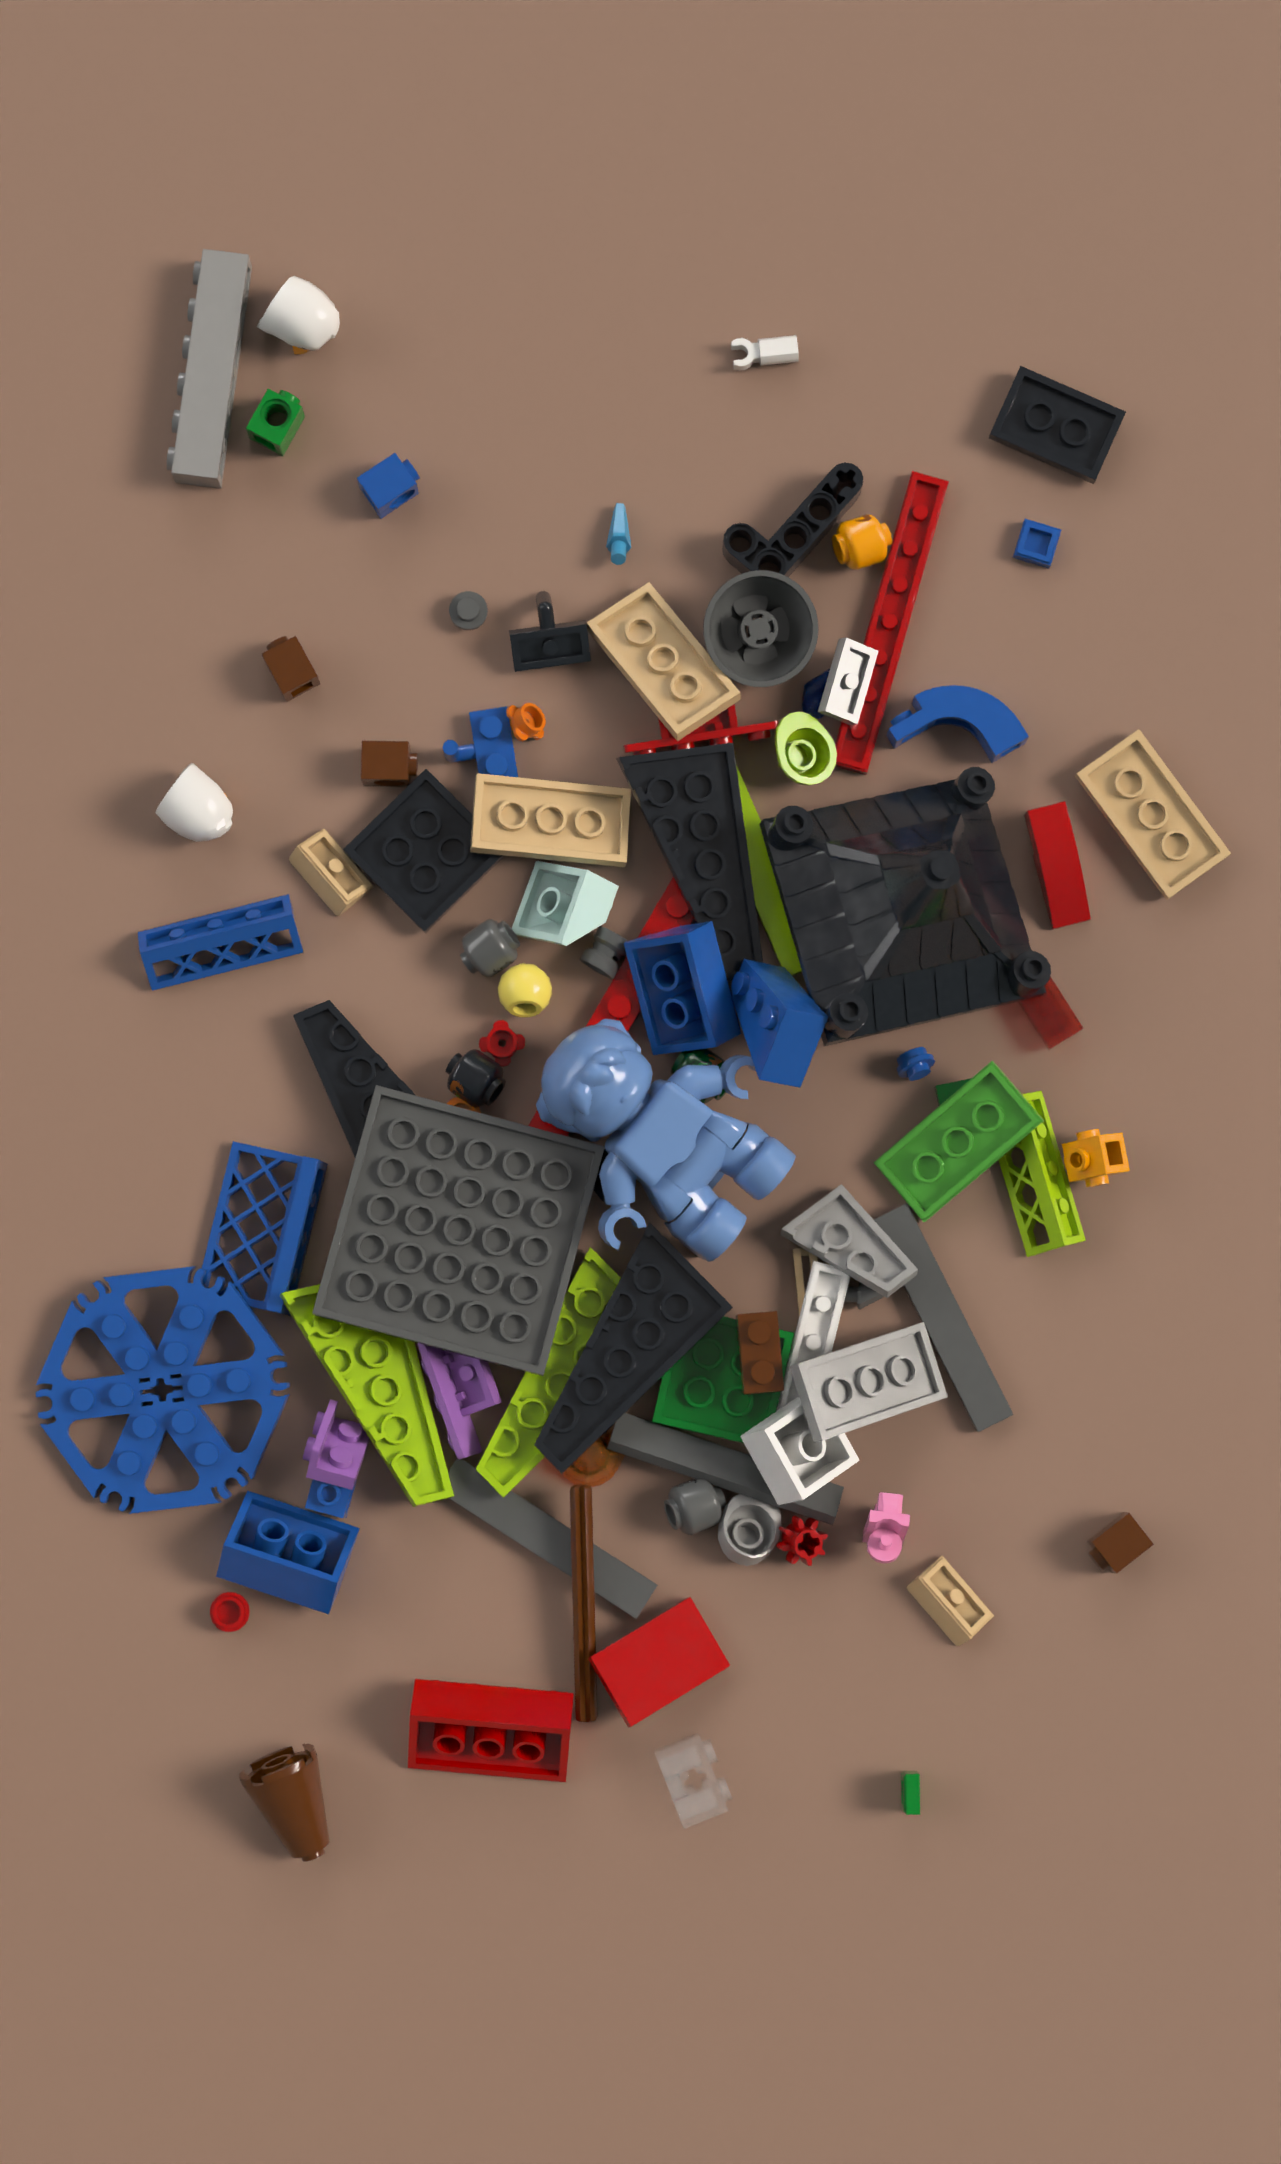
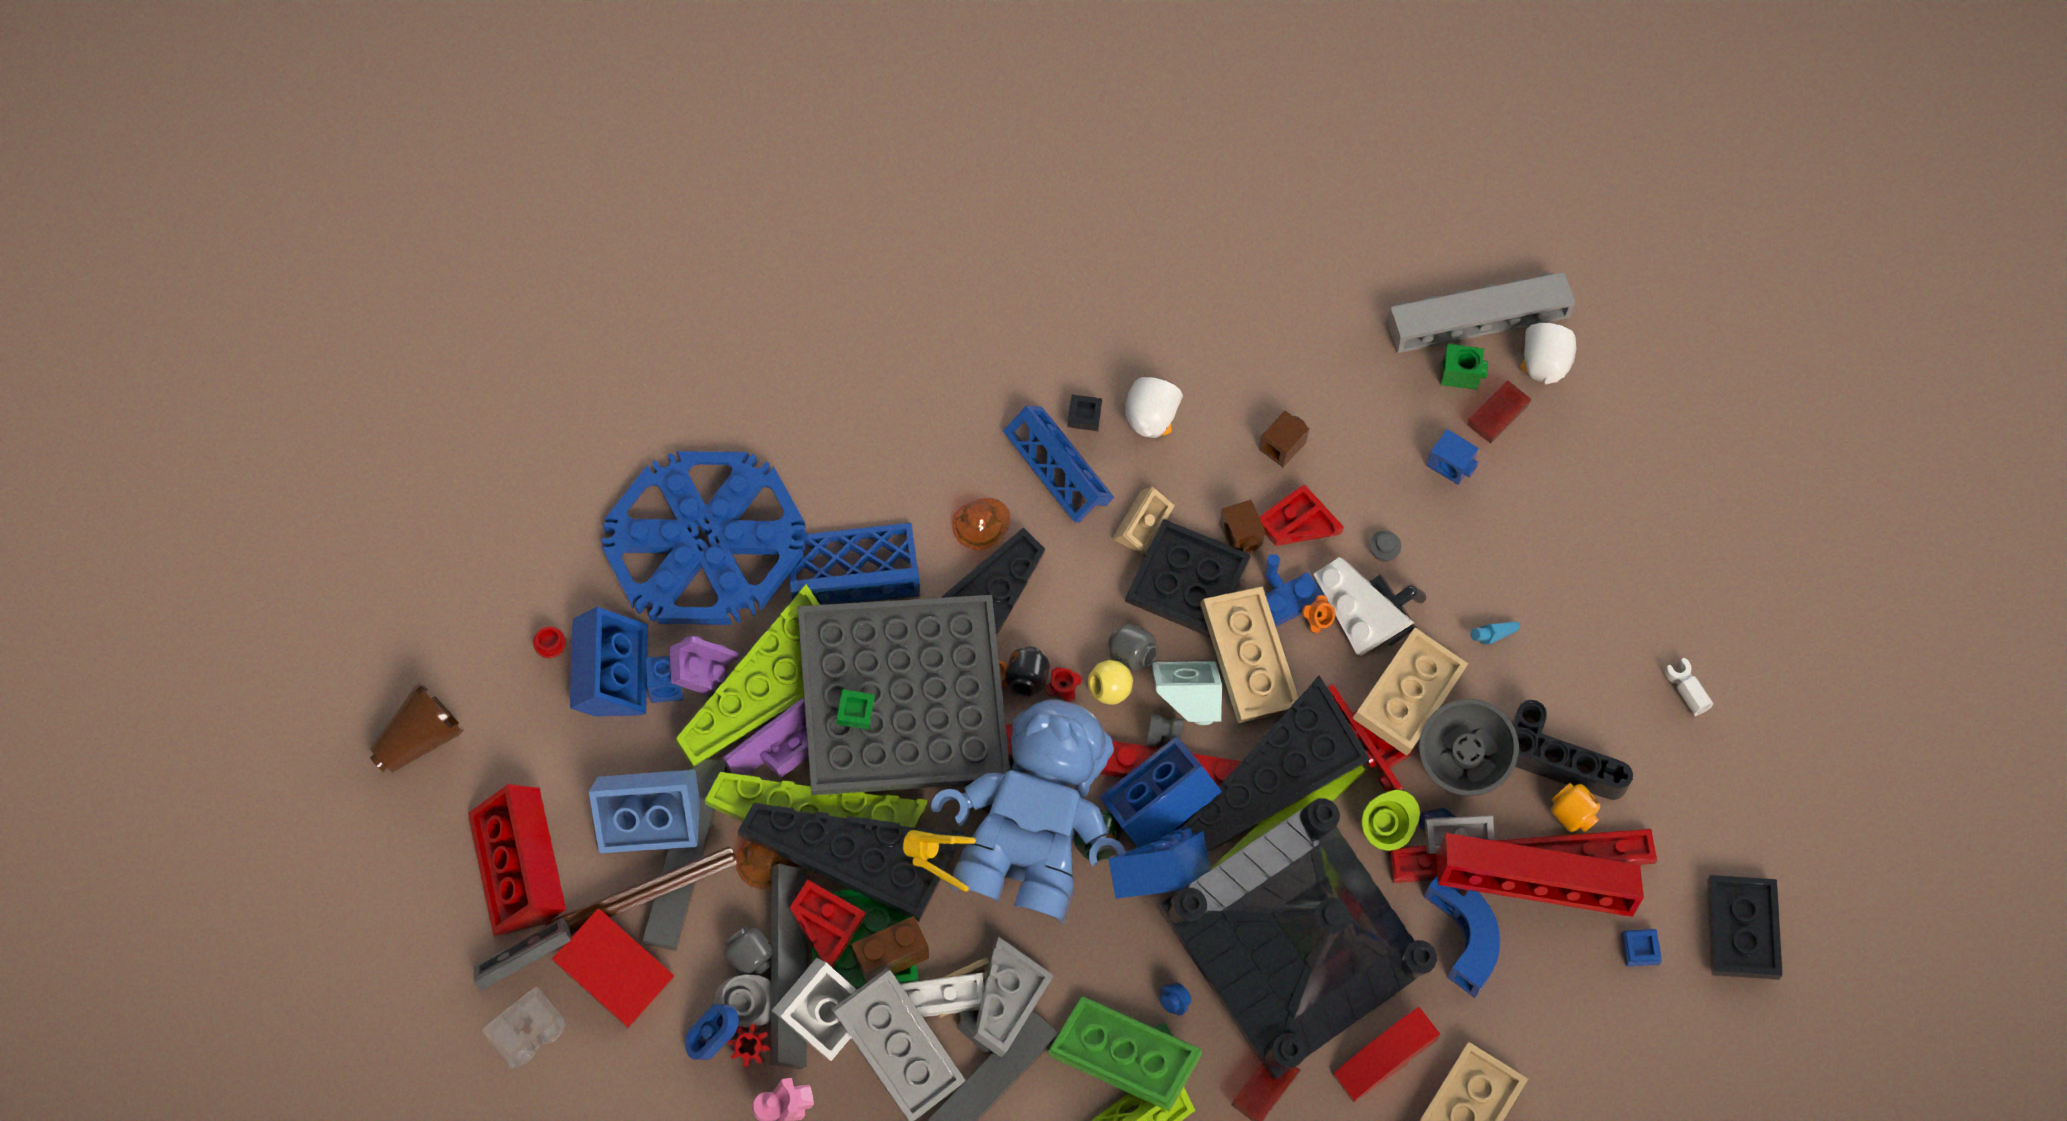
camera: 70 degrees right, 20 degrees down
(166, 885) = (1084, 412): none -> black plate
(261, 1060) = (981, 523): none -> clear orange piece
(348, 405) = (1499, 411): none -> clear red plate
(398, 694) = (1299, 519): none -> red wing
(468, 1292) = (855, 709): none -> green plate
(488, 1567) = (646, 811): none -> medium blue slope
(535, 674) = (1359, 607): none -> white wing
(608, 1757) = (521, 953): none -> dark grey tile
(659, 1272) = (926, 845): none -> yellow plant
(697, 1411) = (826, 921): none -> red wing
(775, 1577) = (711, 1032): none -> blue plate
(927, 617) = (1539, 875): none -> red brick

